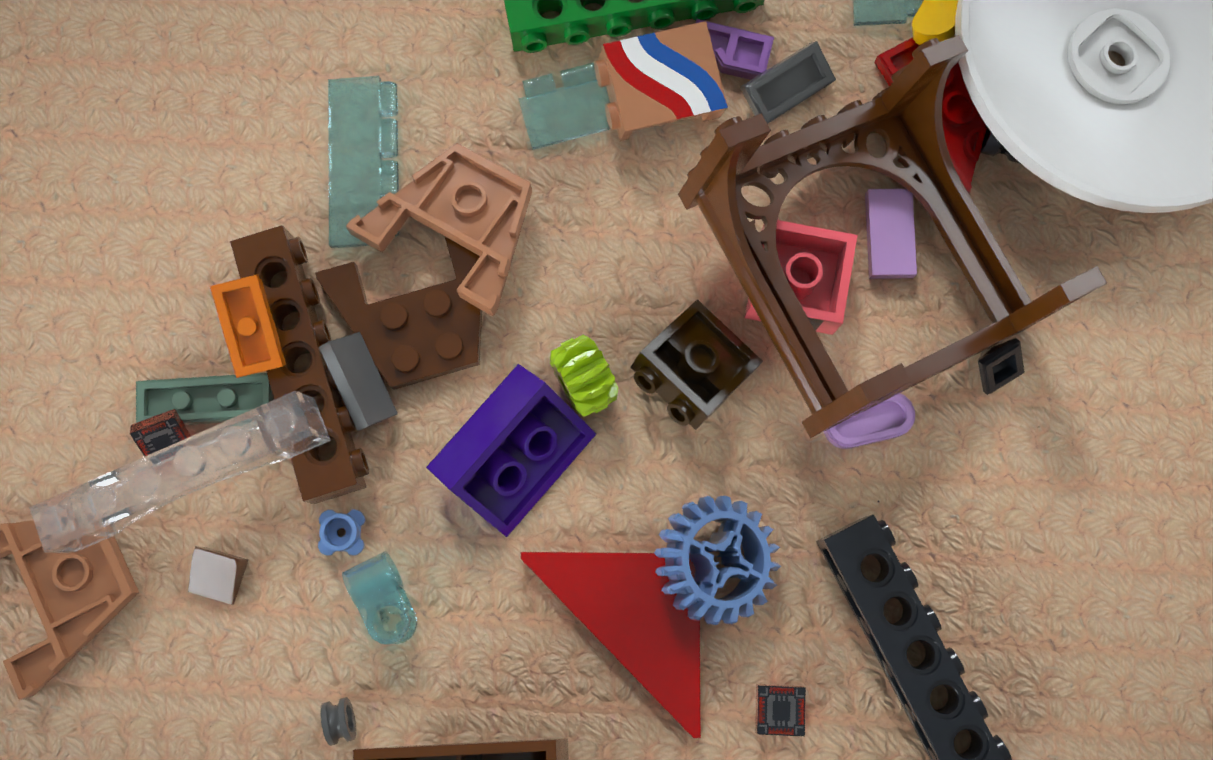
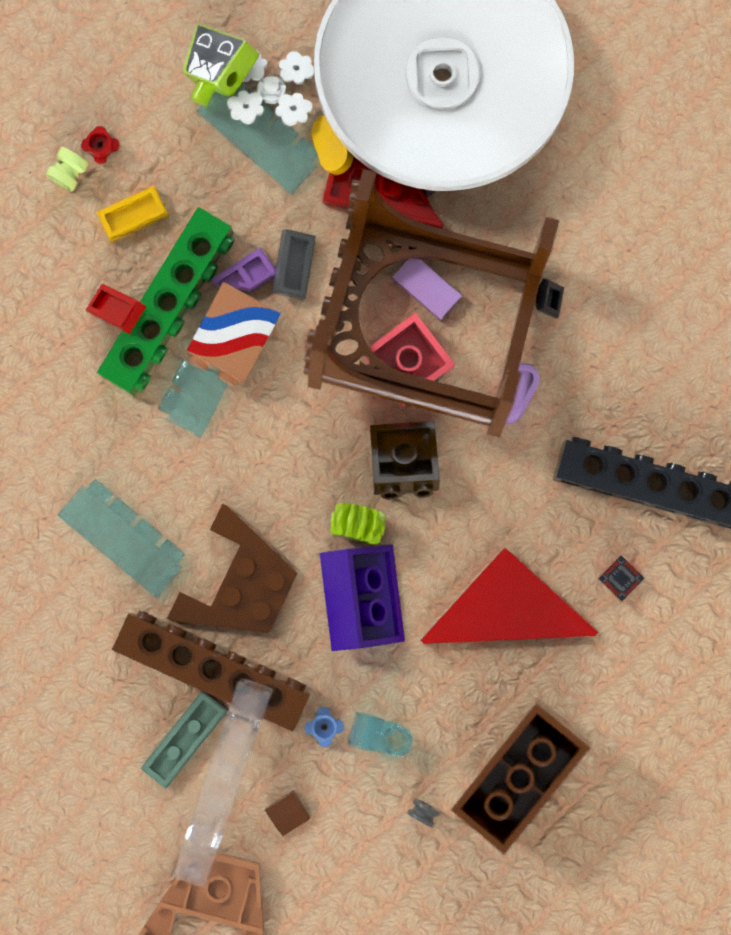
camera: 50 degrees left, 5 degrees up
(158, 432) = (187, 779): tile -> none
(248, 325) = (175, 679): orange plate -> none
(358, 380) = (251, 646): dark grey tile -> none
(467, 203) = (205, 501): nougat wing -> none
(735, 530) = (525, 566): medium blue gear -> none

